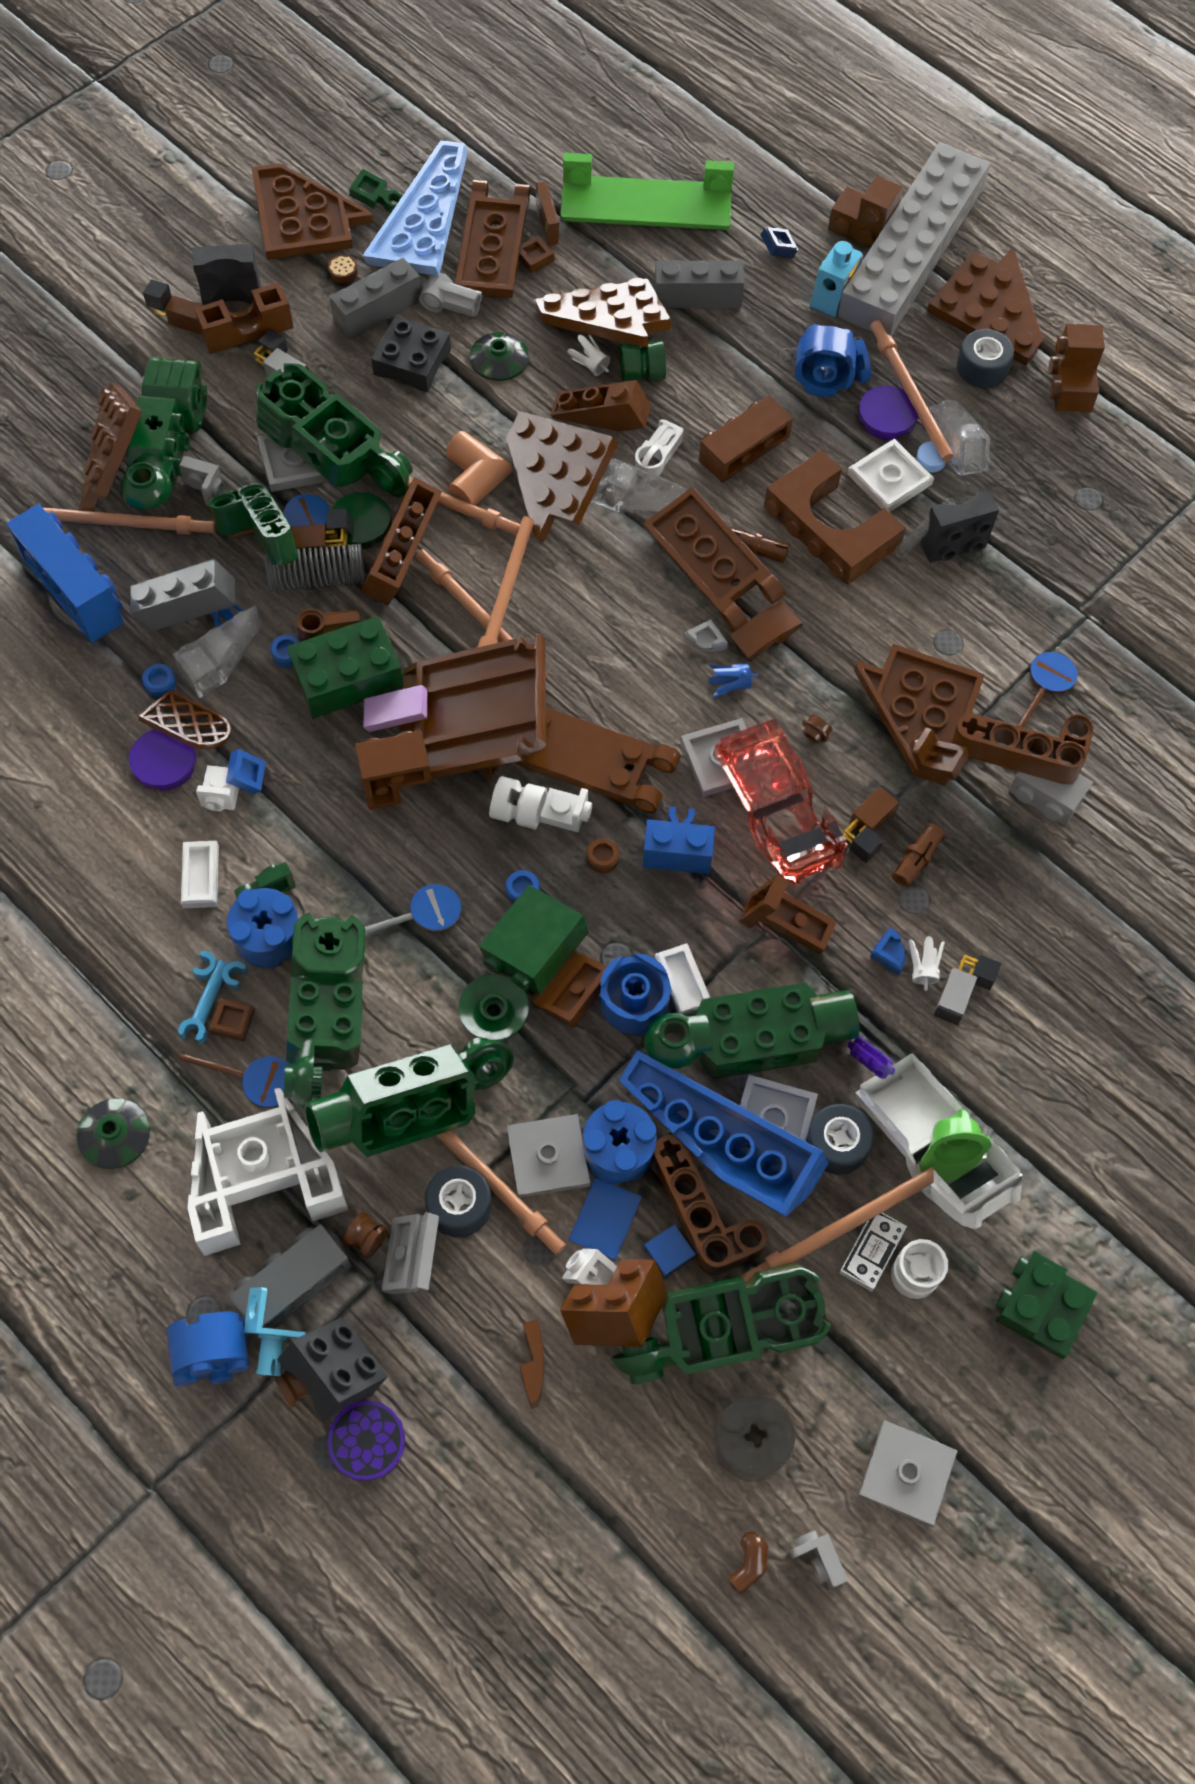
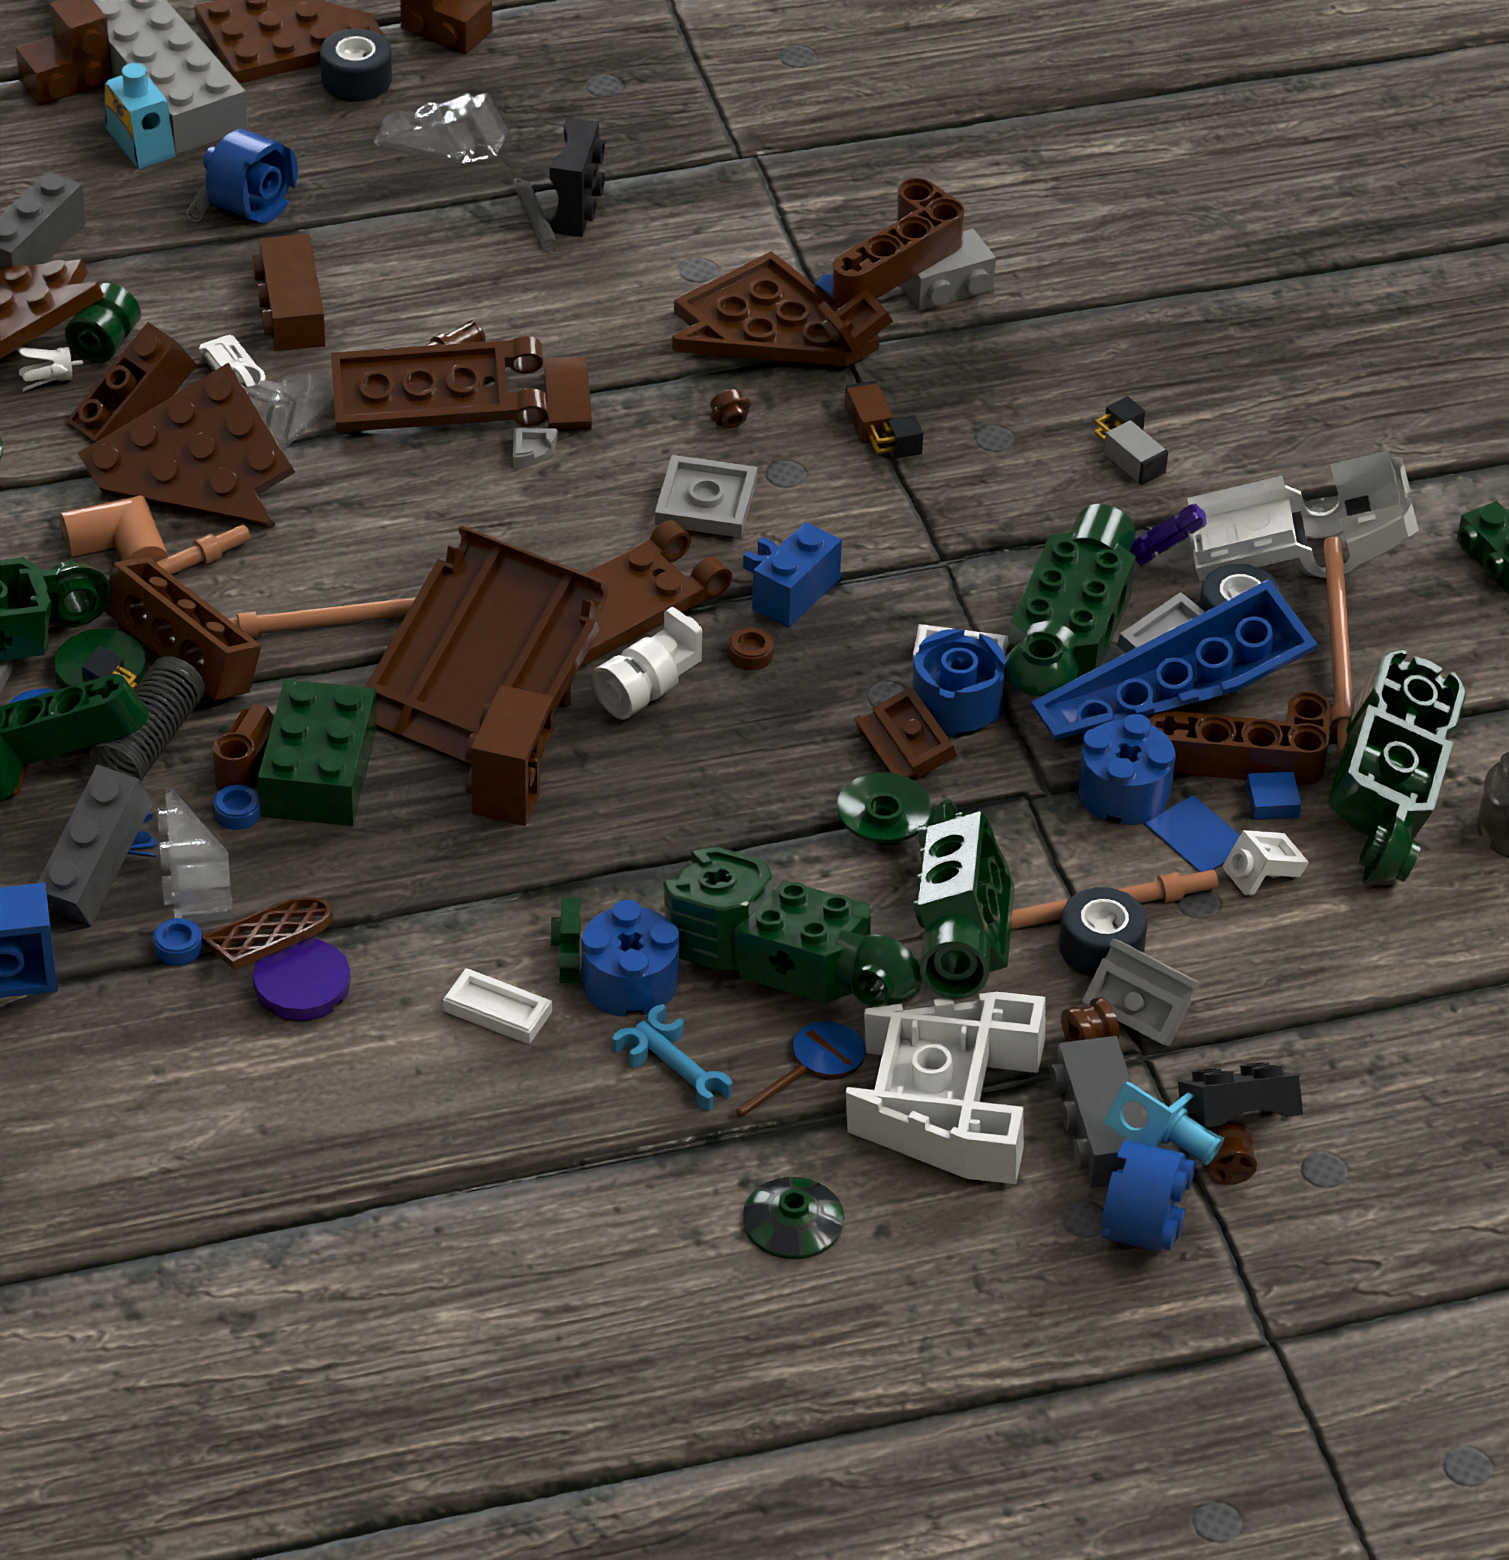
camera: 60 degrees left, 20 degrees down
(215, 792) = (391, 940): white bracket -> none
(232, 1019) = (722, 1048): reddish brown tile -> none
(245, 771) = (391, 901): blue tile -> none
(366, 1441) = (1336, 1128): tile -> none
(395, 708) = (415, 732): lavender tile -> none
(431, 907) = (707, 817): blue piece -> none
(507, 583) = (391, 613): nougat bar -> none
(518, 882) = (741, 731): blue tile -> none
(533, 940) = (825, 734): dark green brick -> none
(533, 1372) = (1350, 950): reddish brown slope -> none
(548, 1156) = (1094, 844): light grey plate -> none
(617, 1311) = (1324, 841): reddish brown brick -> none
(736, 676) = (611, 438): blue piece -> none
(773, 779) = (789, 451): clear red piece -> none
(779, 242) = (28, 145): dark blue tile -> none
(787, 915) = (940, 521): reddish brown bracket -> none
(844, 551) = (422, 295): reddish brown arch -> none
(872, 1251) = (1374, 635): tile -> none
(887, 412) = (354, 172): dark purple tile -> none
(888, 349) = (272, 127): nougat bar -> none
(890, 476) = (442, 210): white tile -> none
(890, 951) = (1044, 480): blue tile -> none
(918, 855) = (949, 403): reddish brown pin -> none
(919, 1269) = (1425, 606): white wheel -> none
(927, 972) = (1090, 460): white piece -> none
(930, 458) = (446, 168): light blue tile -> none
(955, 1147) = (1316, 501): bright green piece -> none
(1052, 674) = (805, 212): blue piece -> none

